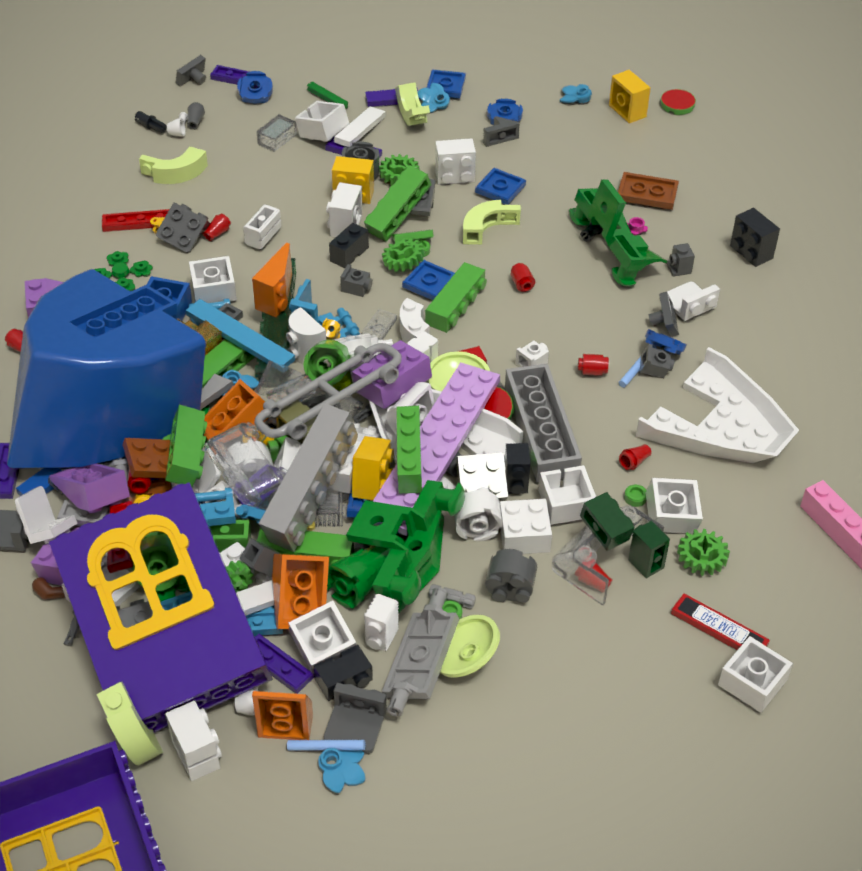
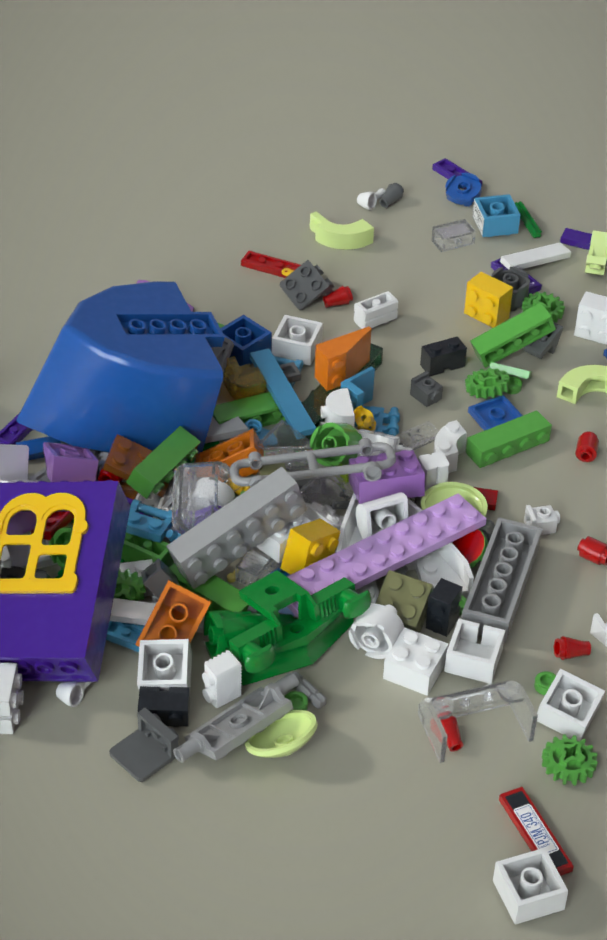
camera: 30 degrees right, 5 degrees down
(120, 269) = (229, 302): green plant -> none
(150, 122) = (348, 186): black axle -> none
(192, 70) = (416, 155): dark grey tile -> none
(283, 715) = (84, 712): orange slope -> none
(284, 667) = (119, 675): dark purple tile -> none
(298, 97) = (496, 215): none -> dark azure brick
(319, 745) = (106, 756): light blue bar -> none
(323, 121) = (505, 238): white piece -> none
(344, 208) = (461, 320): white brick -> none
(344, 771) = (106, 784): dark azure plate -> none
(409, 449) = (345, 543): bright green brick -> none
(511, 576) = (366, 694): dark grey brick -> none
(607, 521) = (482, 684): dark green brick -> none
(648, 549) = (512, 731): dark green brick -> none

